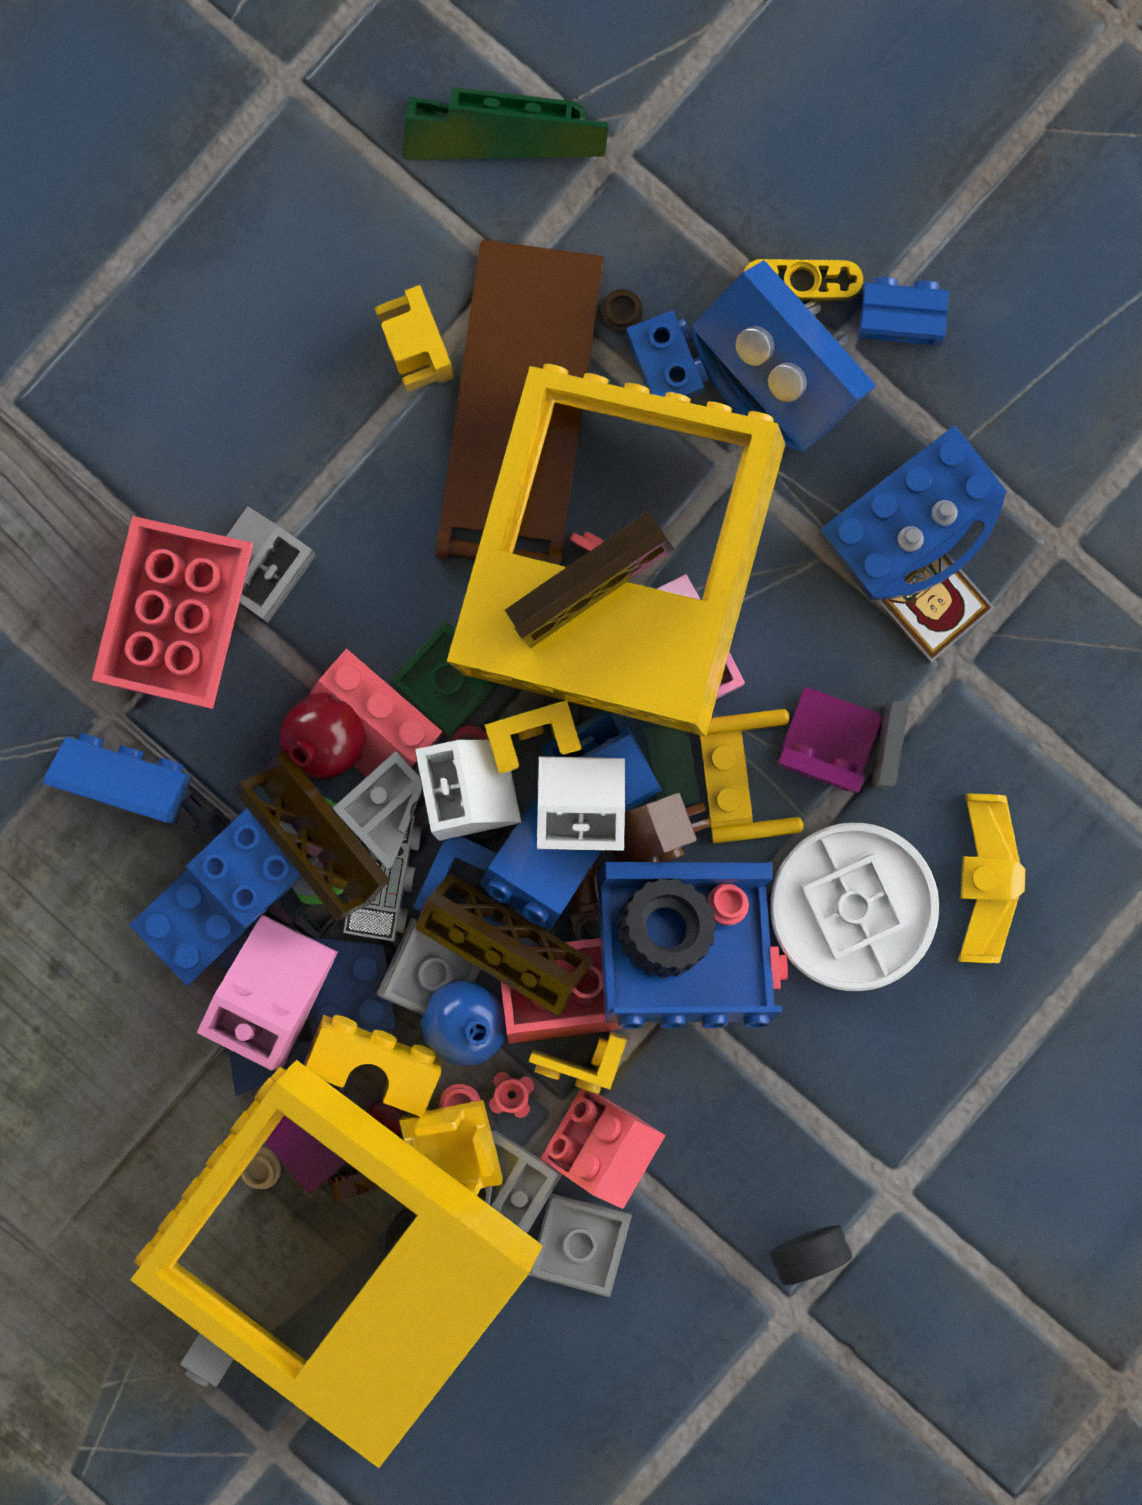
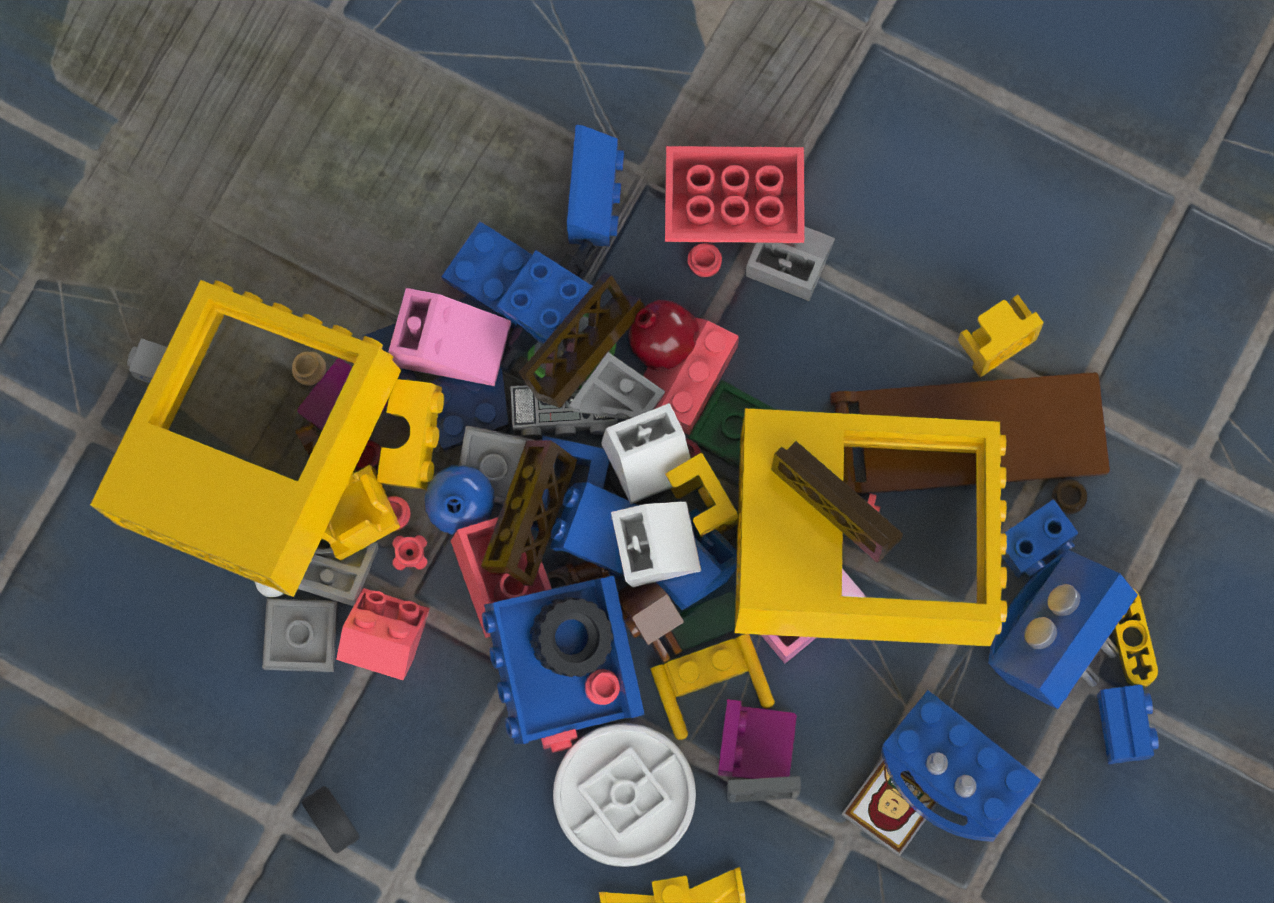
camera: 80 degrees right, 10 degrees down
(239, 667) = (704, 260): none -> coral plate
(499, 126) = (1193, 365): dark green wedge -> none
(606, 1057) = (455, 616): yellow bracket -> none

